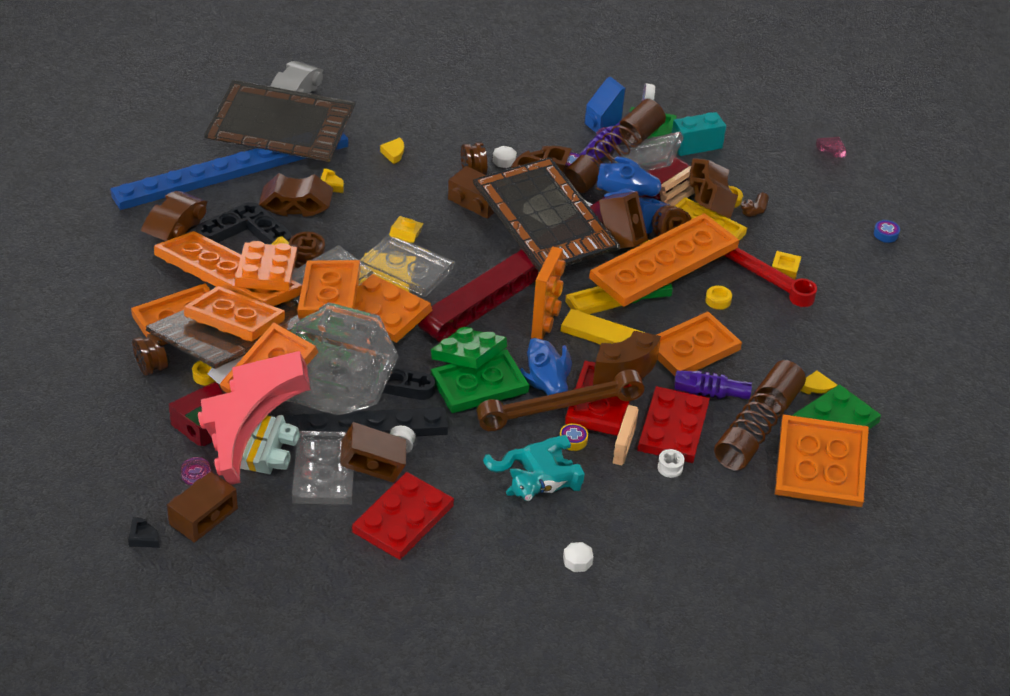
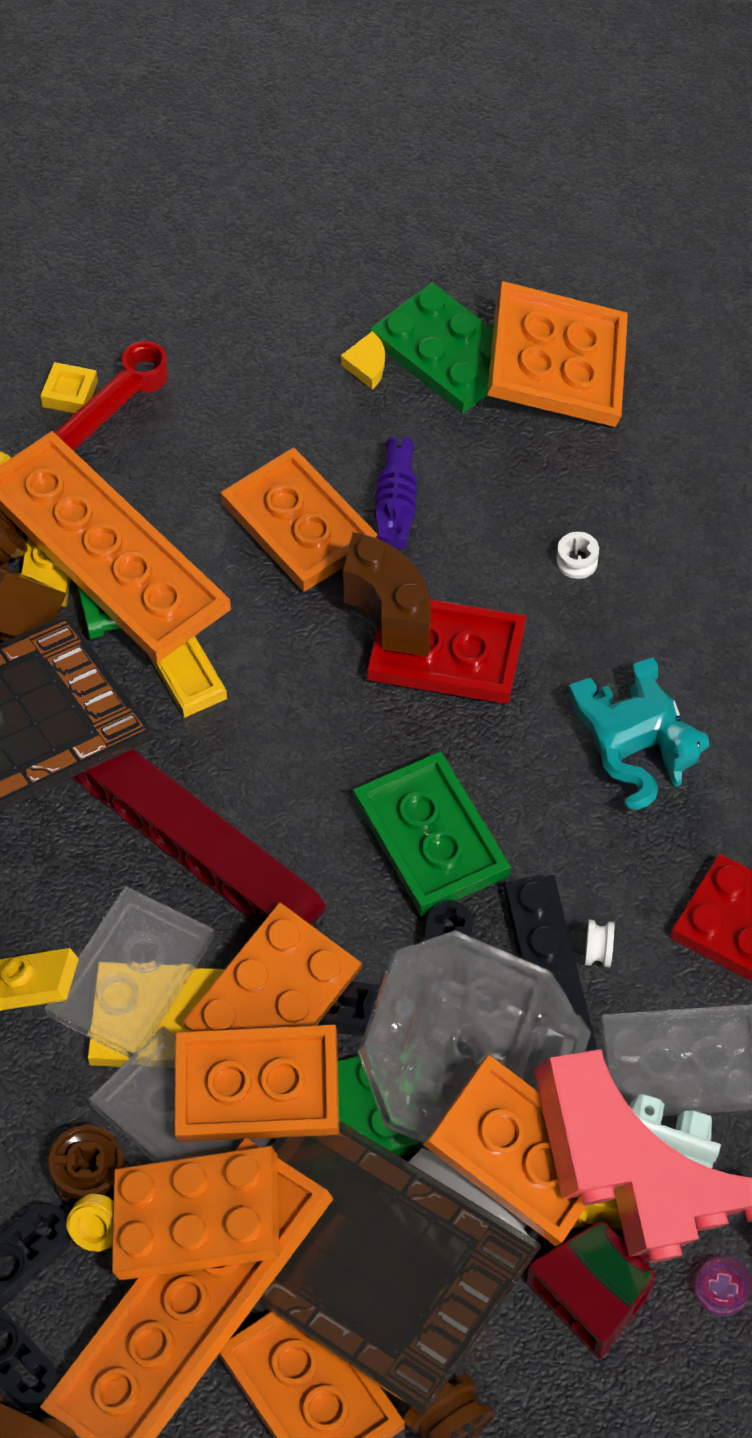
camera: 90 degrees left, 15 degrees up
(234, 313) = (367, 1242): orange plate -> none
(373, 452) = (658, 974): reddish brown brick -> none
(469, 347) = (360, 848): green plate -> none
(547, 291) = (245, 708): orange plate -> none
(547, 367) = (402, 721): blue animal -> none
(560, 400) = (515, 792): reddish brown piece -> none
(577, 436) = (539, 690): tile -> none
(594, 328) = (271, 654): yellow tile -> none
(625, 435) = (543, 610): light nougat tile -> none
(674, 423) = (486, 551): red plate -> none
(718, 297) = (162, 485): yellow tile -> none
(773, 394) = (410, 406): reddish brown piece -> none

